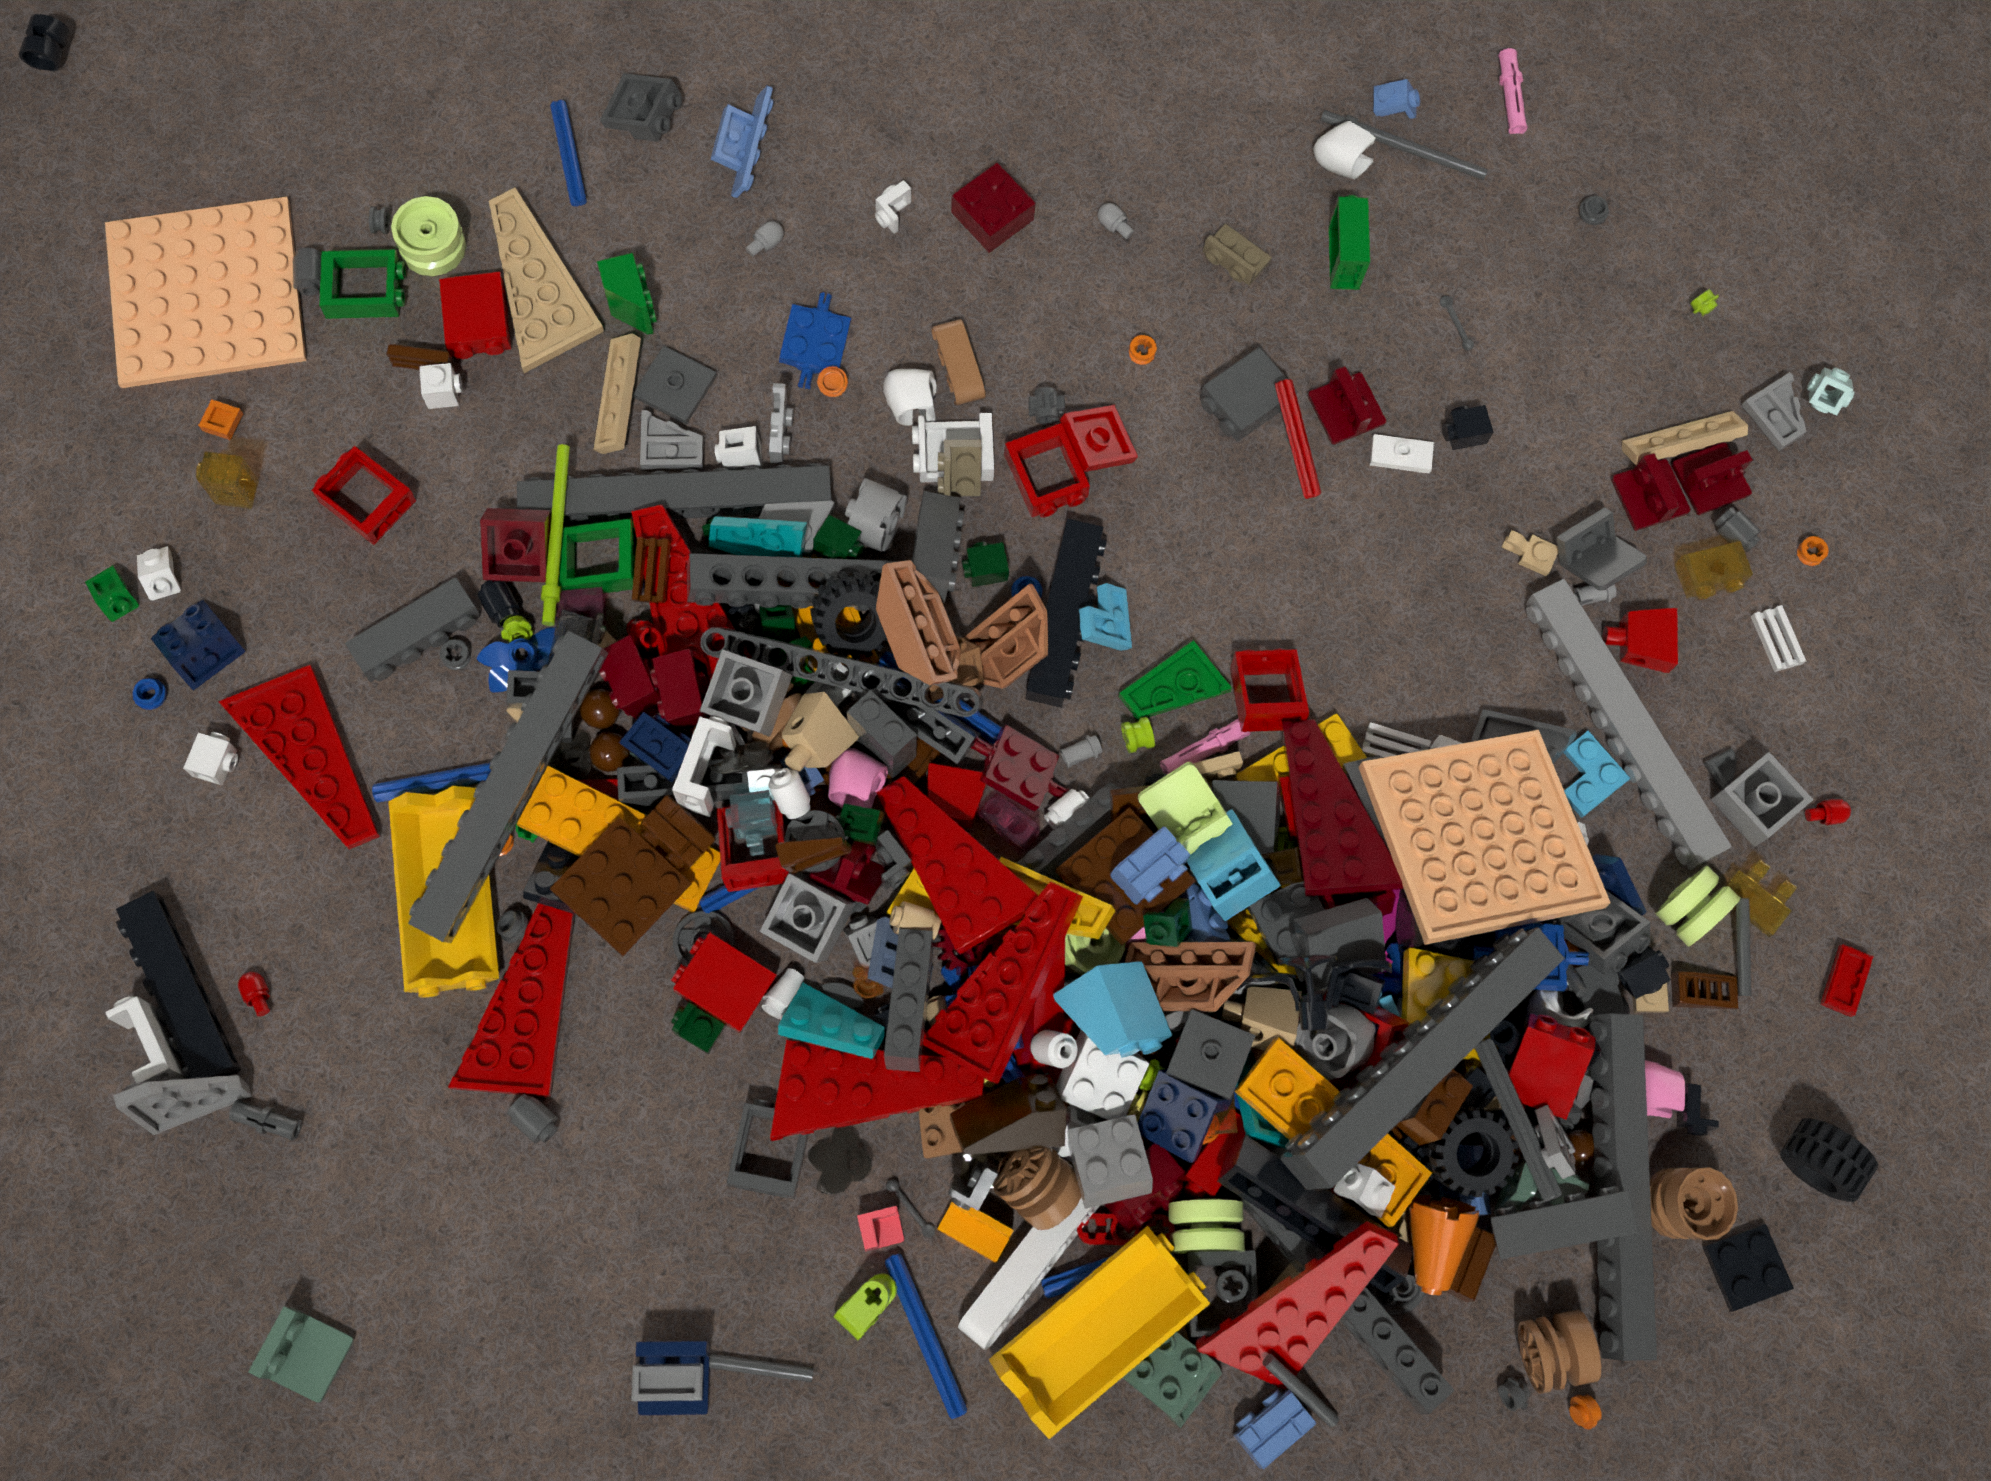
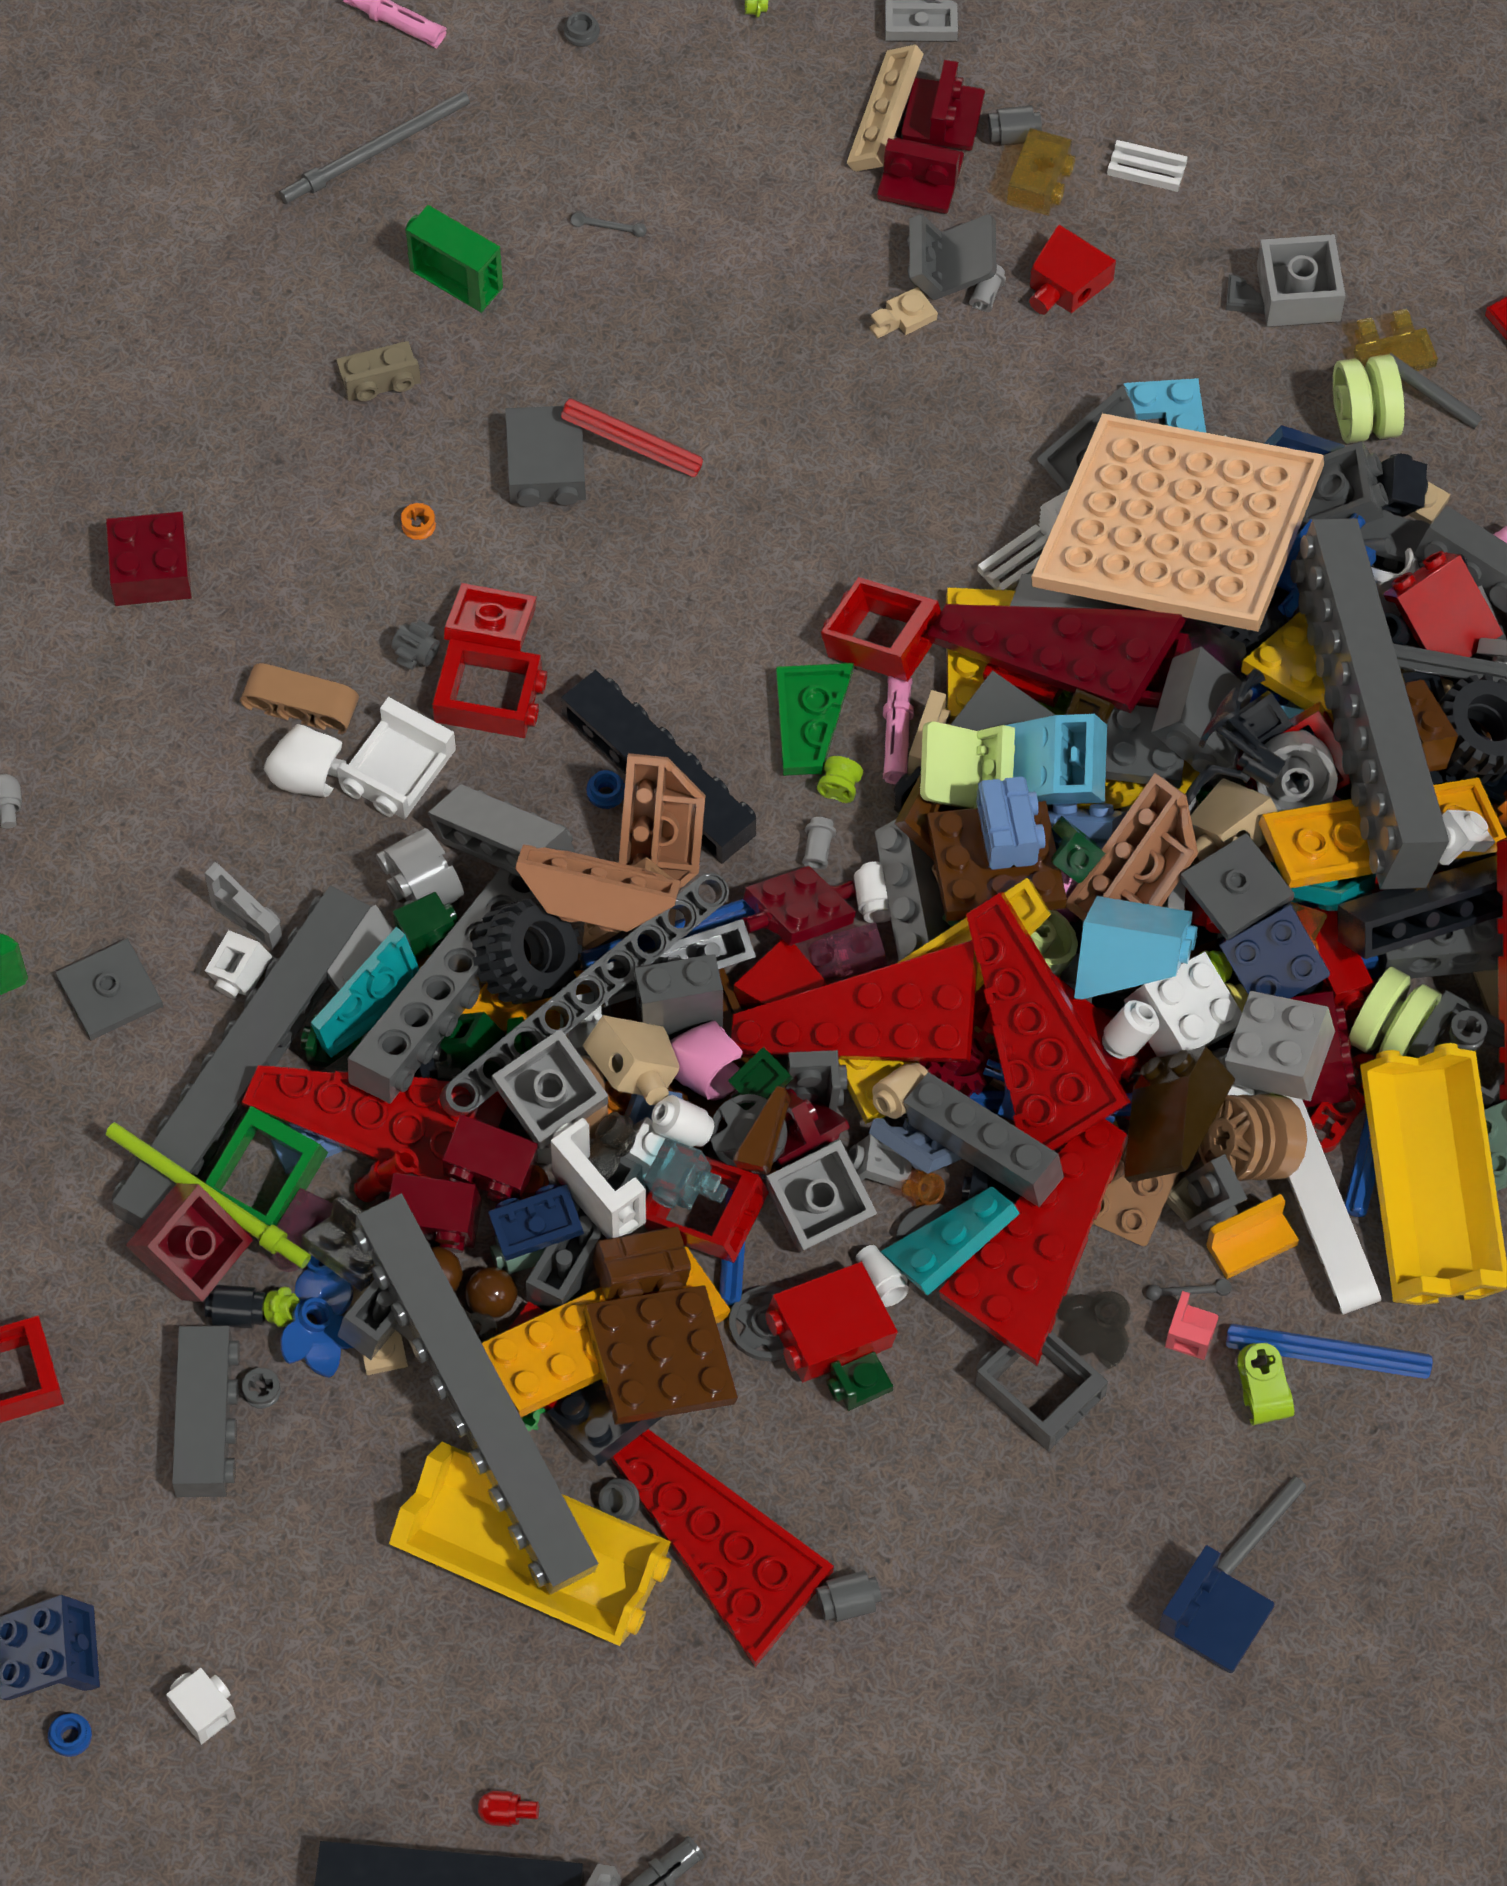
camera: 50 degrees left, 10 degrees down
(299, 736) = (242, 1600): red wing -> none
(431, 782) = (400, 1479): blue axle -> none
(617, 394) = (78, 1049): tan plate -> none
(652, 543) = (298, 1099): reddish brown tile -> none
(667, 1382) = (1219, 1620): light grey tile -> none
(668, 446) = (178, 1034): light grey wing -> none
(814, 339) = (164, 822): blue plate -> none
(832, 381) = (227, 832): orange plate -> none
(890, 202) = (68, 664): white bracket -> none
(961, 468) = (429, 761): dark tan bracket -> none
(985, 564) = (552, 799): dark green brick -> none
(1110, 622) = (695, 730): medium azure plate -> none
(1114, 219) = (250, 457): light grey cylinder -> none
(1342, 150) = (342, 198): white piece -> none
(1346, 406) = (625, 377): dark red bracket -> none
(1396, 98) = (319, 121): medium blue bracket -> none
(1401, 453) = (712, 361): white plate -> none
(1467, 427) = (731, 283): black brick -> none
(1627, 725) = (1141, 345): light grey brick -> none
(1680, 993) = (1438, 472): reddish brown slope -> none
(1812, 542) = (1078, 89): orange bush -> none
(1834, 811) = (1351, 231): red cylinder -> none

